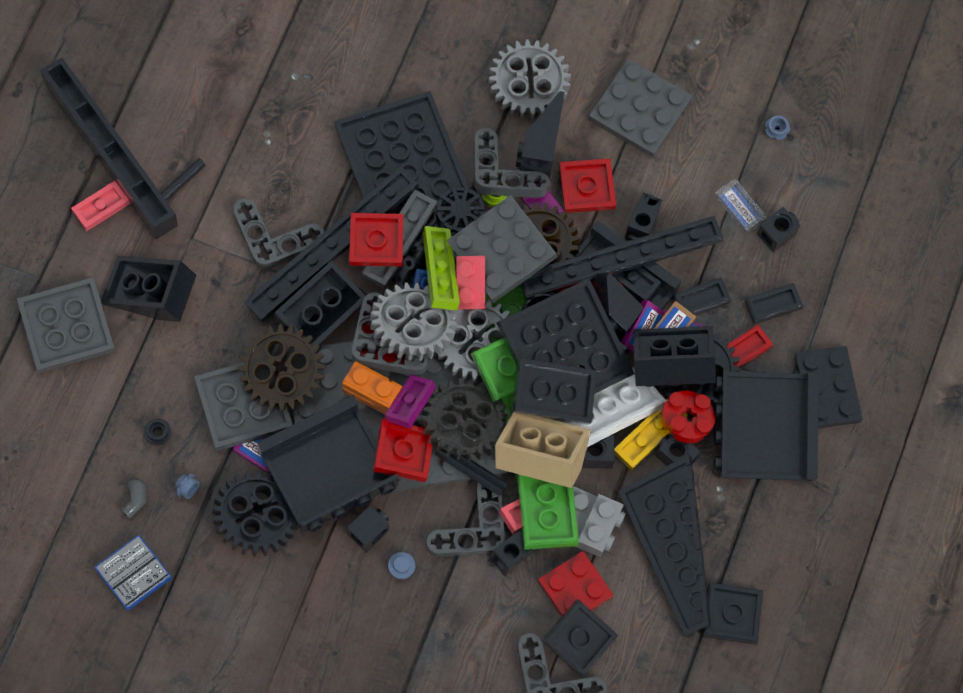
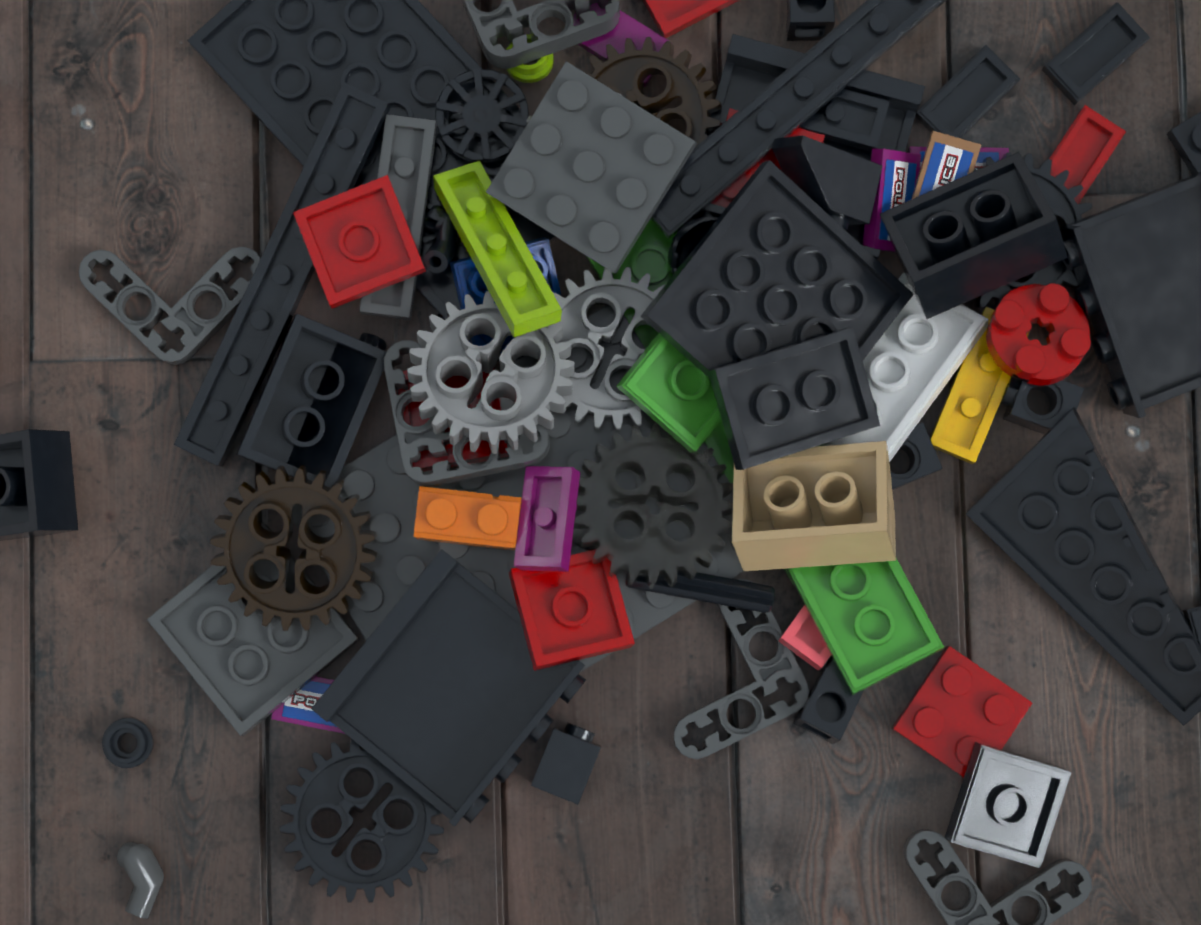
camera: 15 degrees left, 15 degrees up
(187, 486) = (221, 819): sand blue plate -> none
(401, 565) = (650, 804): sand blue plate -> none
(471, 282) = (563, 255): coral plate -> none
(596, 521) = (952, 583): light grey plate -> none

